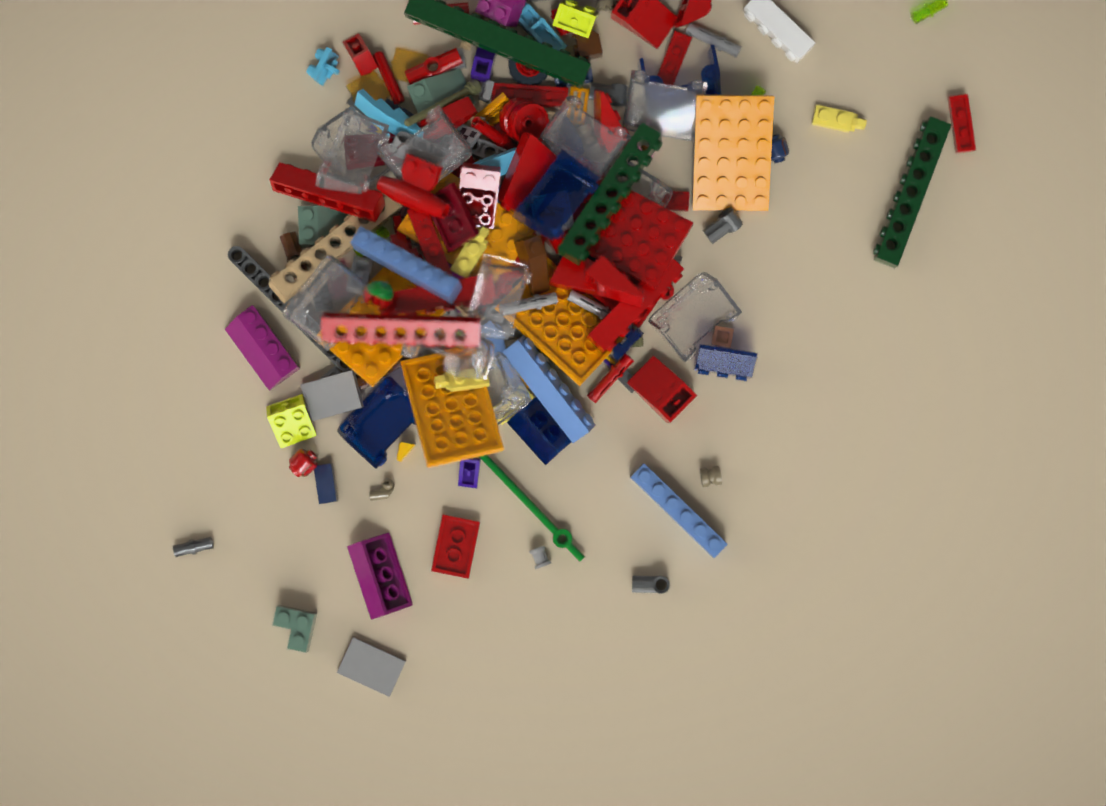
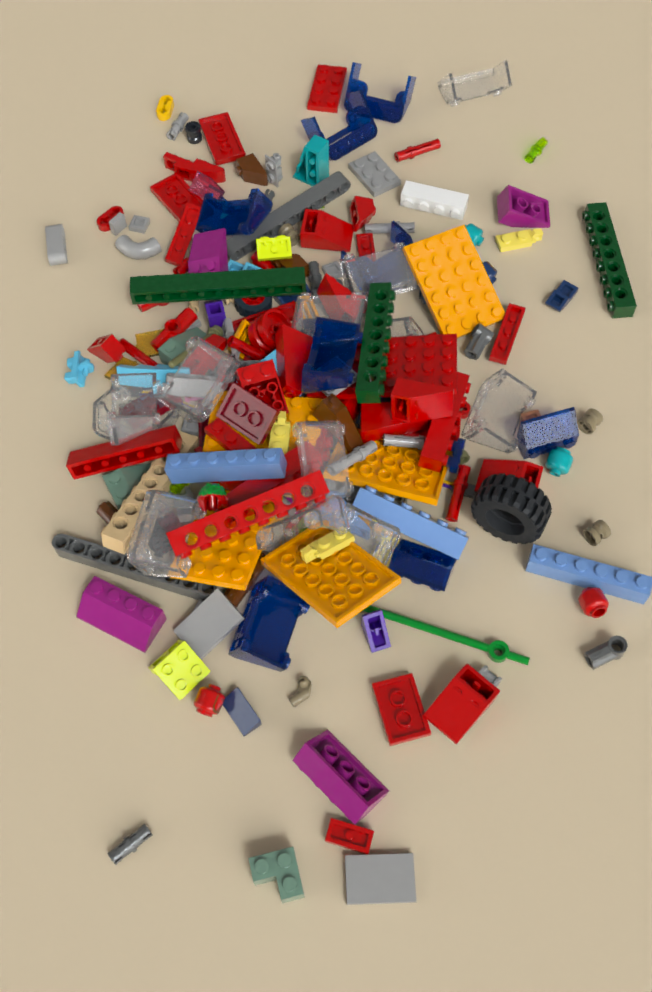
camera: 20 degrees left, 25 degrees down
(363, 625) = (349, 836): none -> red plate
(404, 450) = (303, 641): yellow slope -> none
(415, 189) = (204, 404): red plate -> none
(504, 569) = (461, 703): none -> red slope
(605, 65) = (314, 275): none -> dark grey pin
(627, 63) = (333, 269): none -> light grey tile
(640, 425) = (511, 508): none -> black tyre
(667, 537) = (593, 602): none -> red head
(720, 392) = (559, 461): none -> teal head
(757, 229) = (507, 334): none -> red plate
(775, 365) = (590, 420): none -> dark tan wheel
(789, 94) = (475, 234): none -> teal head
(837, 212) = (562, 296): none -> dark blue slope
(864, 86) = (522, 209): none -> magenta slope
(961, 123) = (616, 207): red plate -> none

